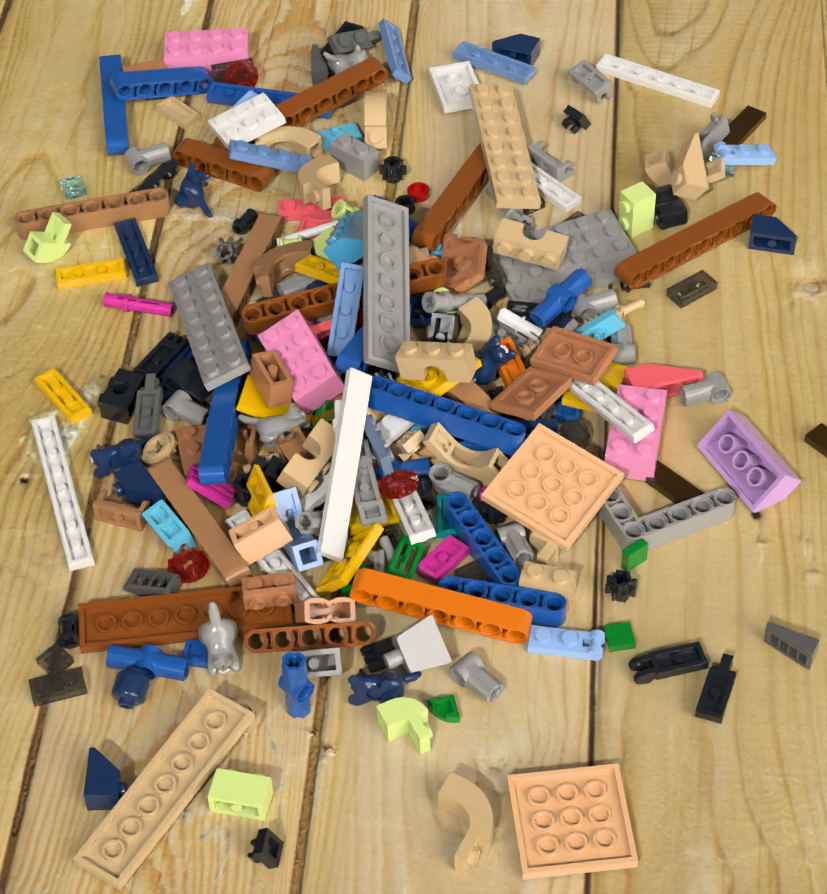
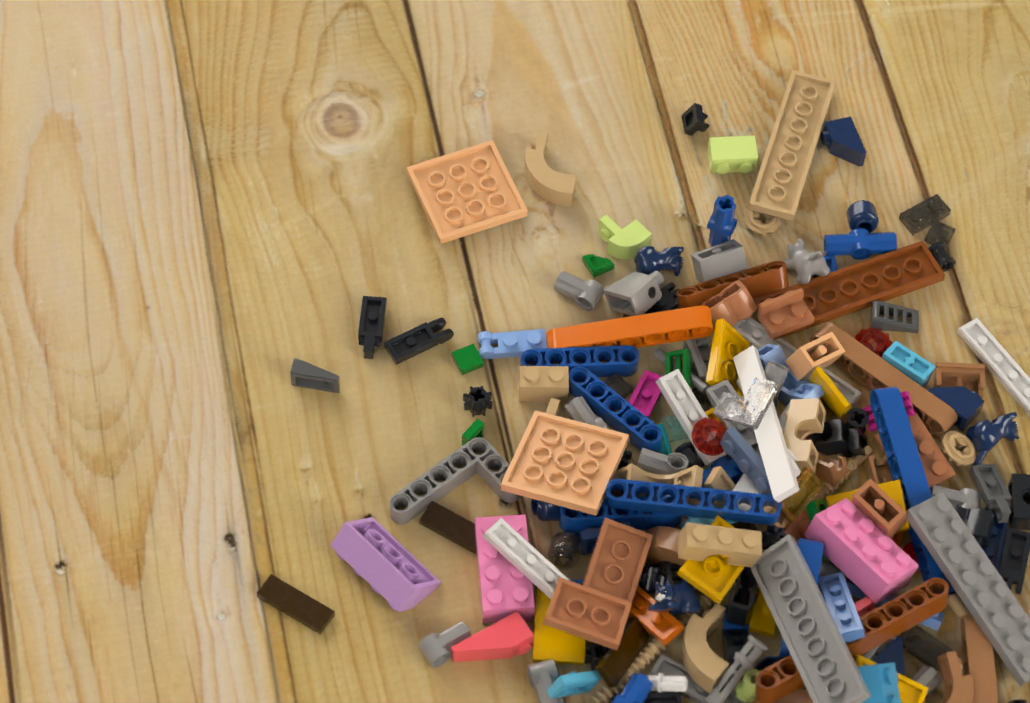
camera: 160 degrees right, 10 degrees up
(272, 427) = (852, 476): light grey animal -> none
(360, 470) = (750, 409): none -> clear plate

